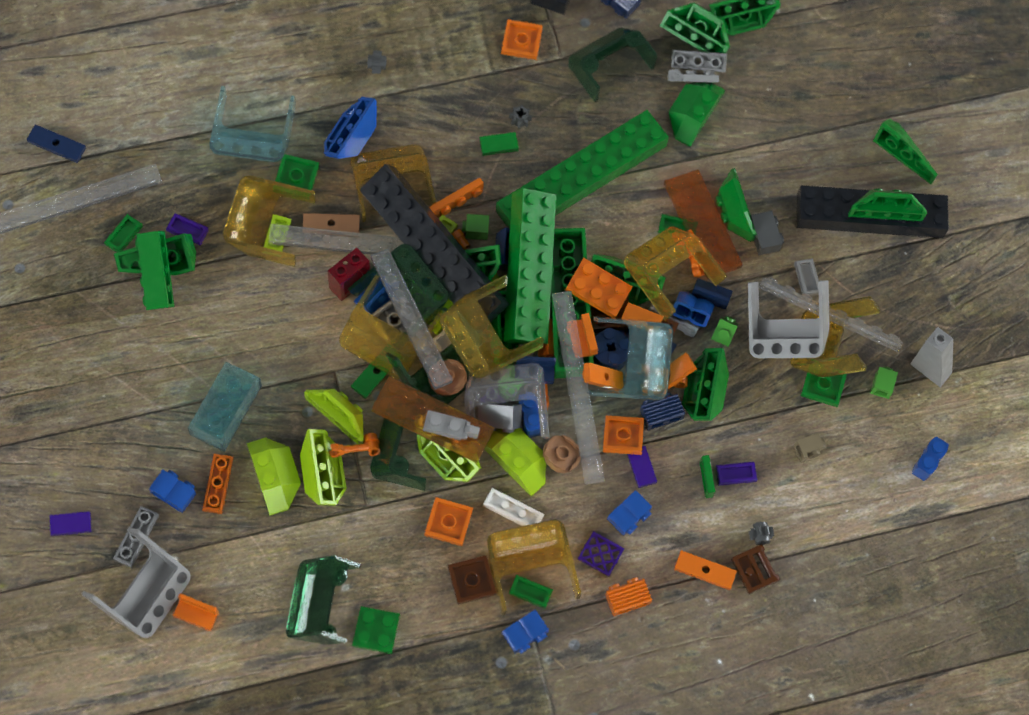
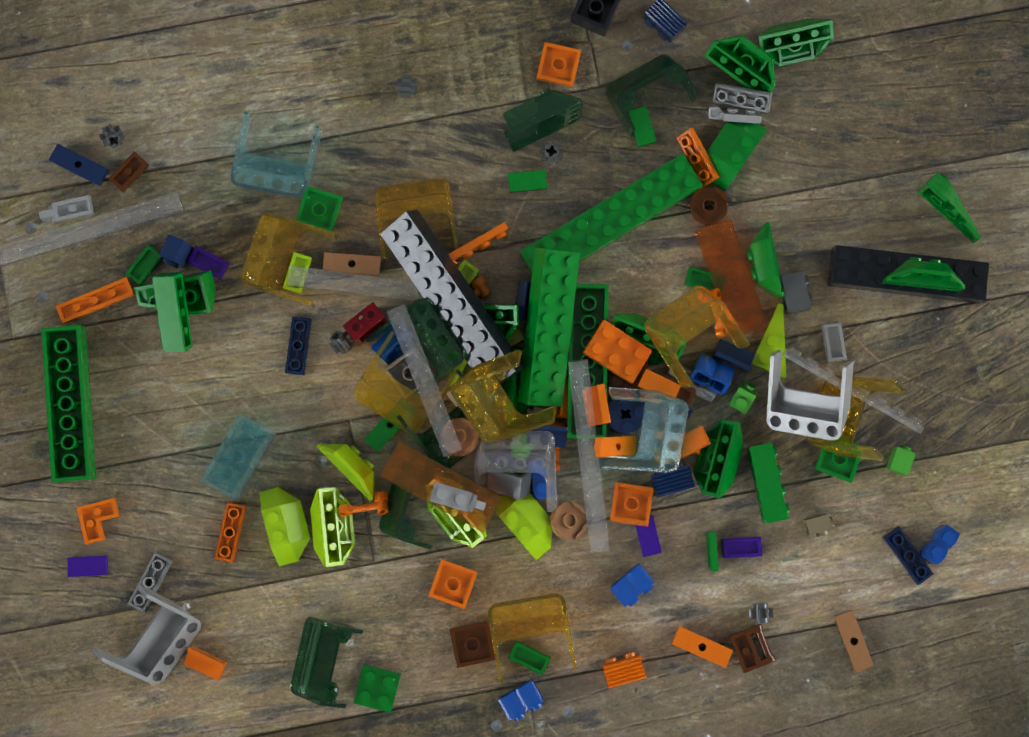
camera: 15 degrees right, 15 degrees up
(46, 185) = (68, 209): none -> light grey hinge
(50, 365) = (68, 404): none -> green brick
(74, 267) = (95, 300): none -> orange plate
(75, 472) = (92, 517): none -> orange plate
(93, 119) = (111, 136): none -> dark grey gear
(106, 148) = (128, 172): none -> reddish brown plate
(156, 214) = (175, 252): none -> dark blue brick
(173, 491) = (185, 539): blue brick -> none
(280, 312) = (297, 358): none -> dark blue tile
(324, 295) = (341, 342): none -> dark grey gear
(352, 129) = (376, 163): blue wedge -> none
(476, 226) = (498, 273): bright green brick -> none
(512, 508) = (517, 574): white tile -> none
(524, 76) = (541, 117): none -> clear green windscreen
(607, 96) = (644, 131): none -> green tile
(608, 542) = (608, 611): dark purple window -> none
(655, 105) = (698, 157): none -> orange tile
(675, 149) = (708, 195): none -> reddish brown plate
(748, 273) = (772, 341): none -> lime wing
(756, 408) = (767, 483): none -> green brick
(851, 545) = (857, 652): none -> medium nougat tile
(909, 482) = (900, 547): none -> dark blue tile
(935, 357) = (955, 441): light grey slope -> none

